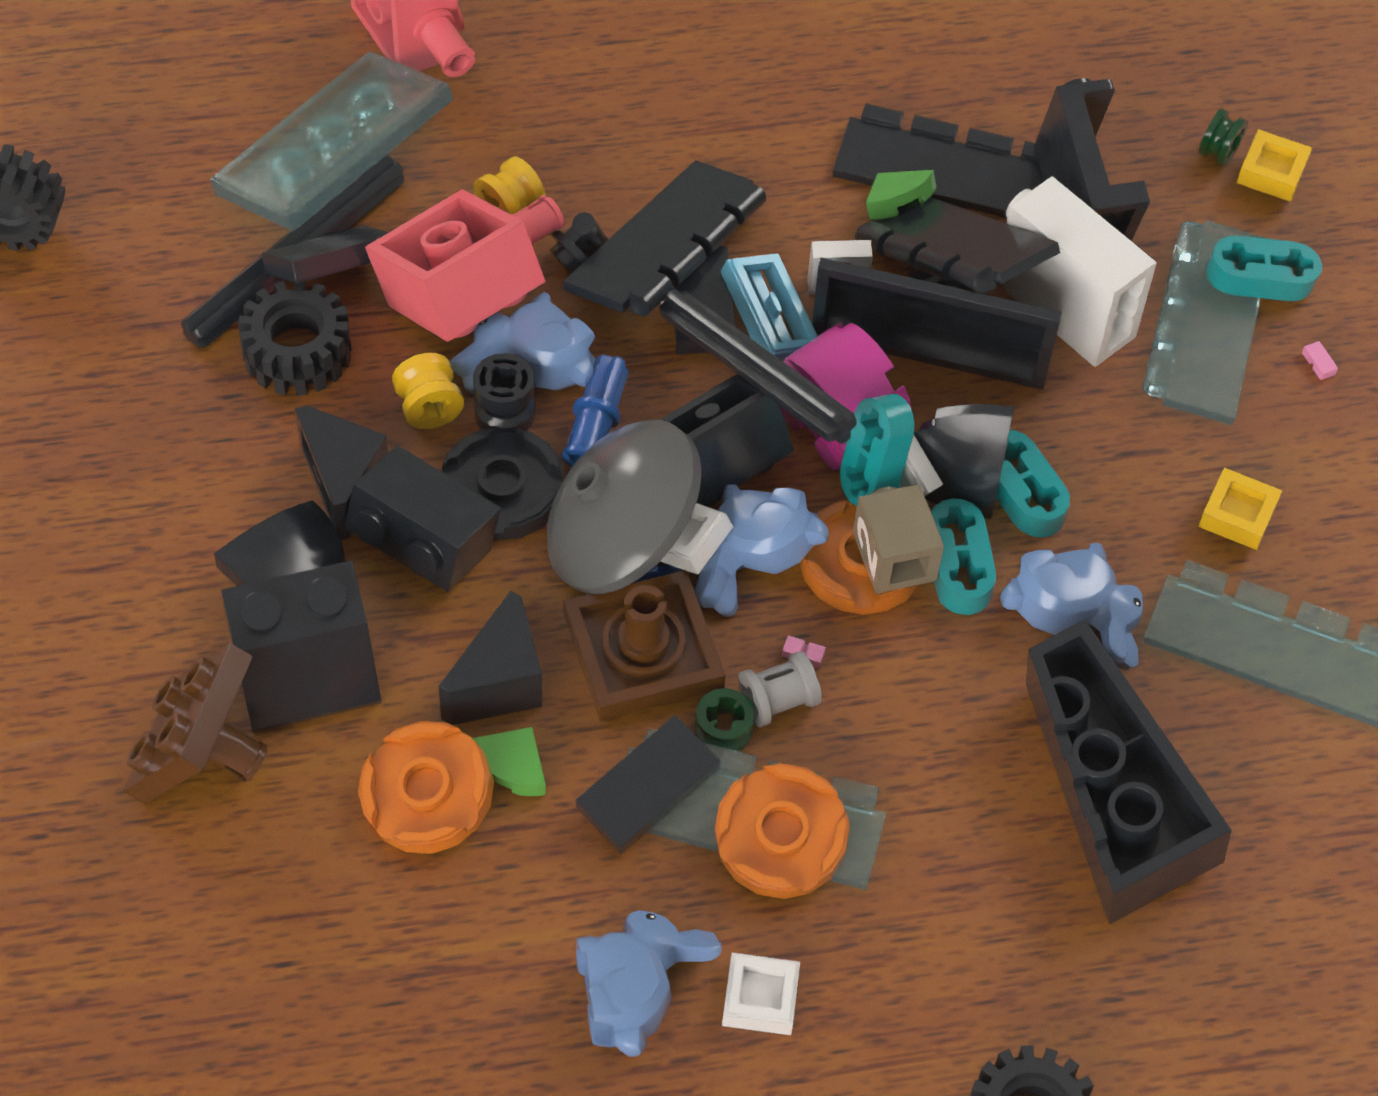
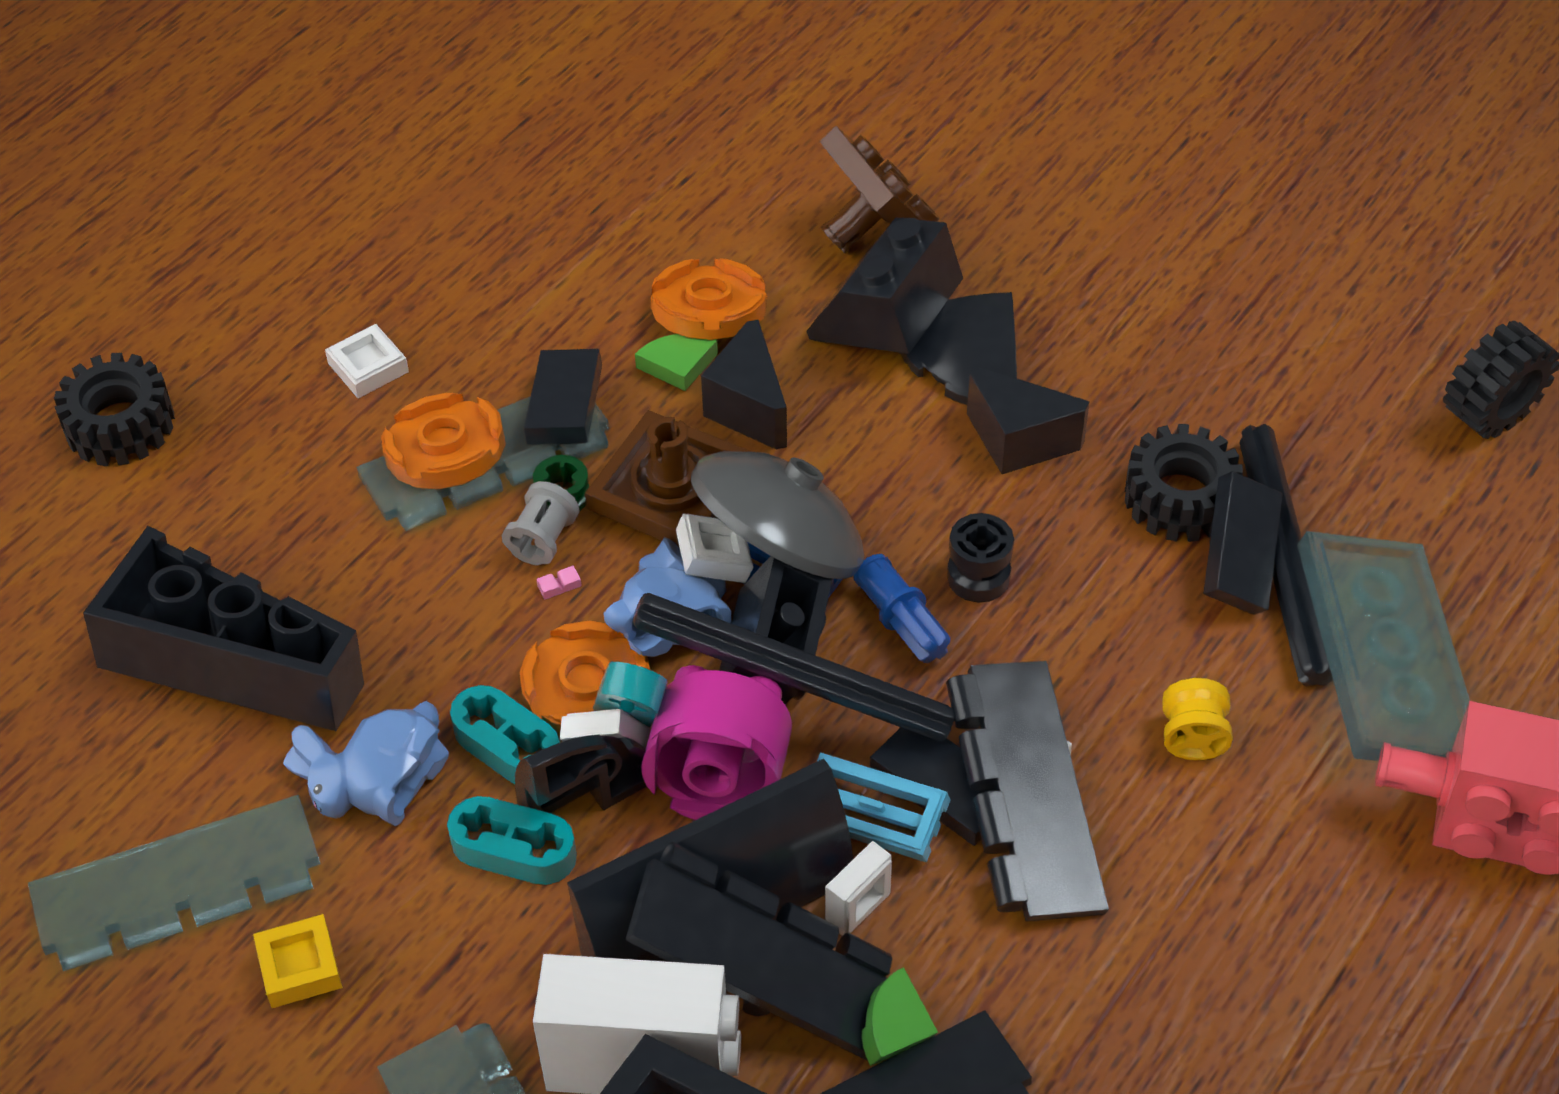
camera: 140 degrees right, 5 degrees down
(422, 518) = (915, 420): black brick -> none
(427, 391) = (1038, 516): yellow wheel -> none
(462, 261) = (1131, 594): coral brick -> none
(512, 472) = (909, 516): black tile -> none
(541, 336) = (1008, 618): medium blue animal -> none
(578, 241) = (1090, 724): black plate -> none
(630, 979) = (456, 297): medium blue animal -> none
(897, 538) = (551, 664): dark tan brick -> none

